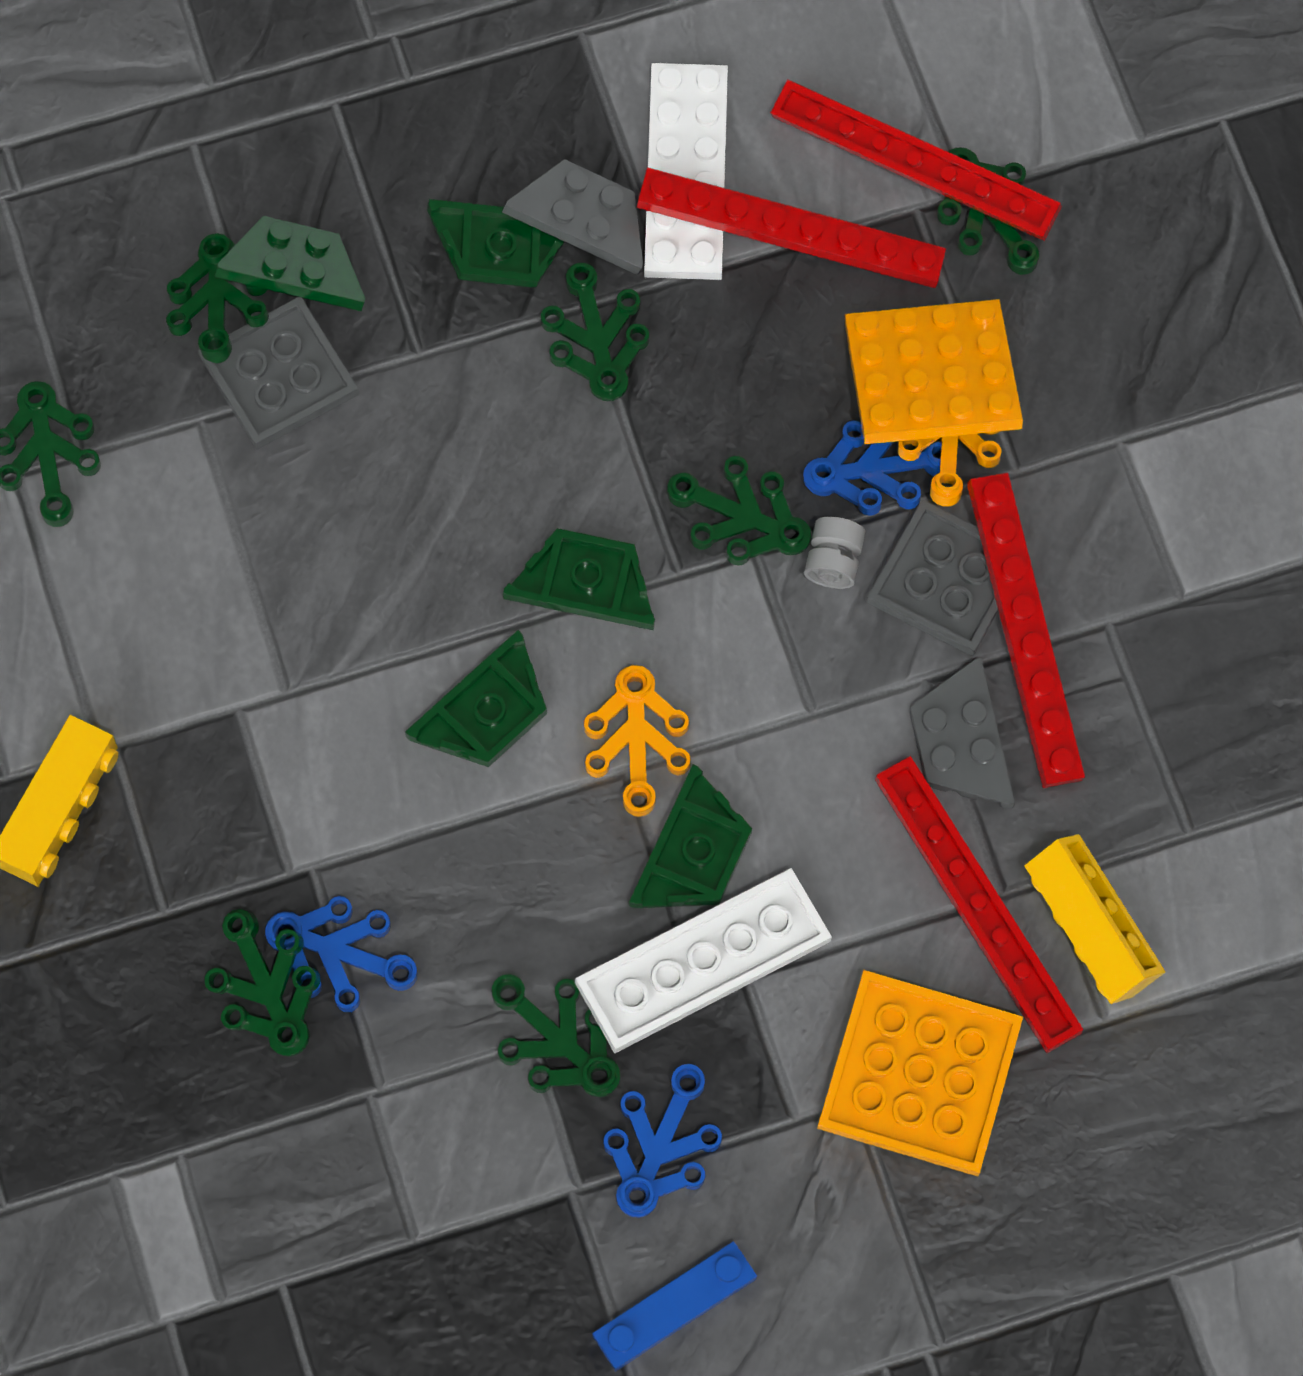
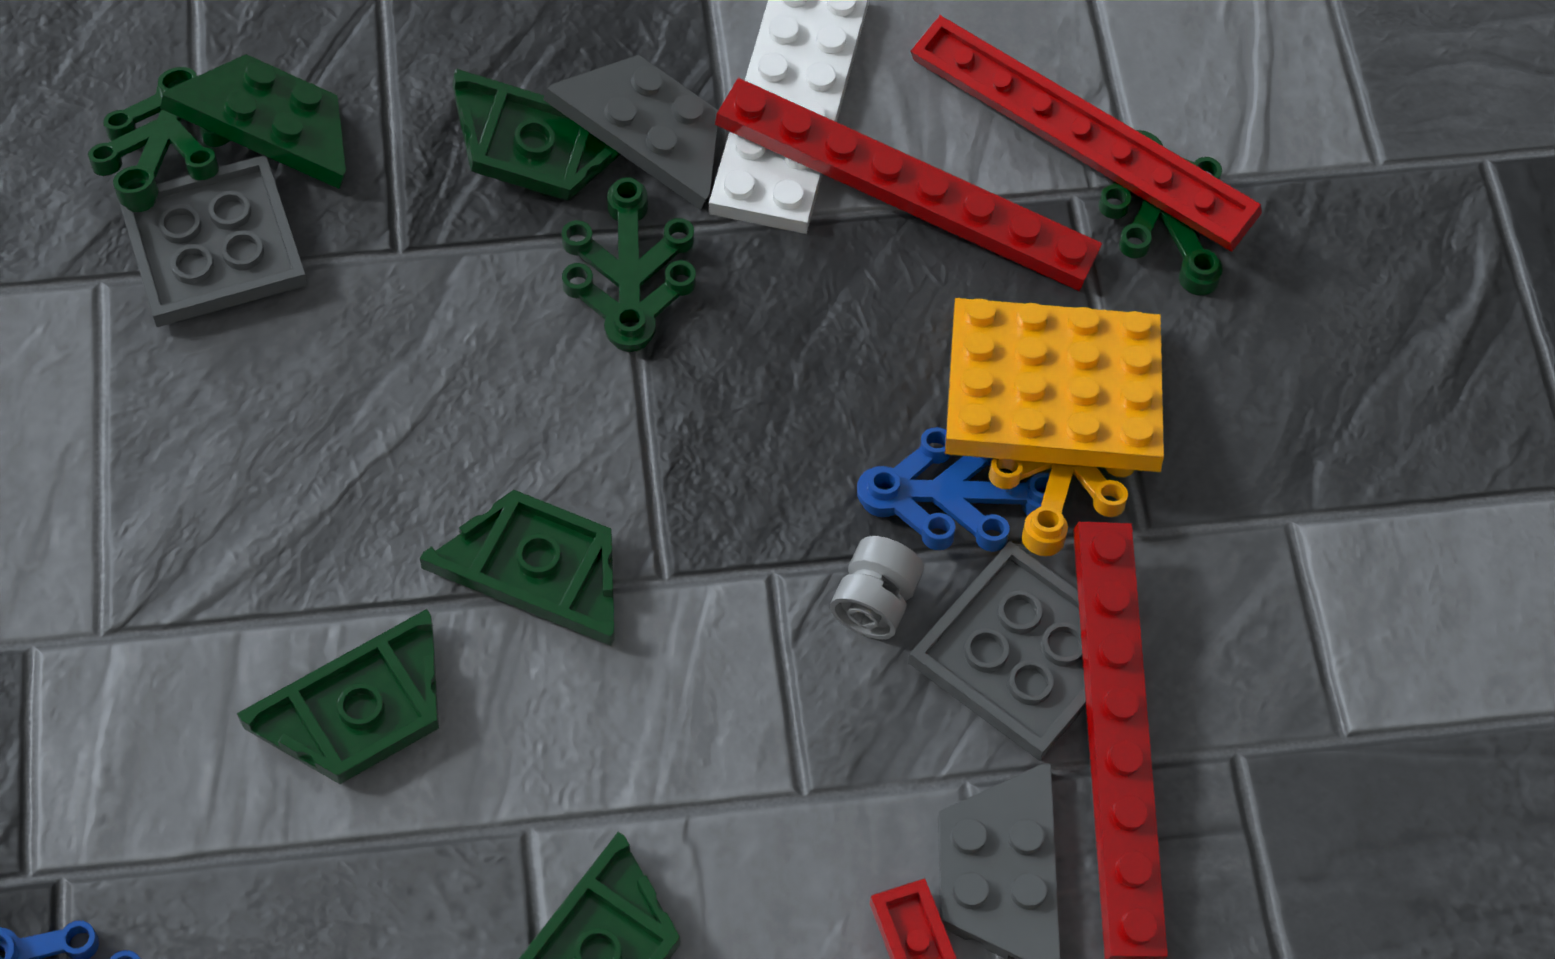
camera: 10 degrees right, 10 degrees down
(636, 732) = (552, 777): light orange plant -> none
(743, 516) = (766, 521): dark green plant -> none

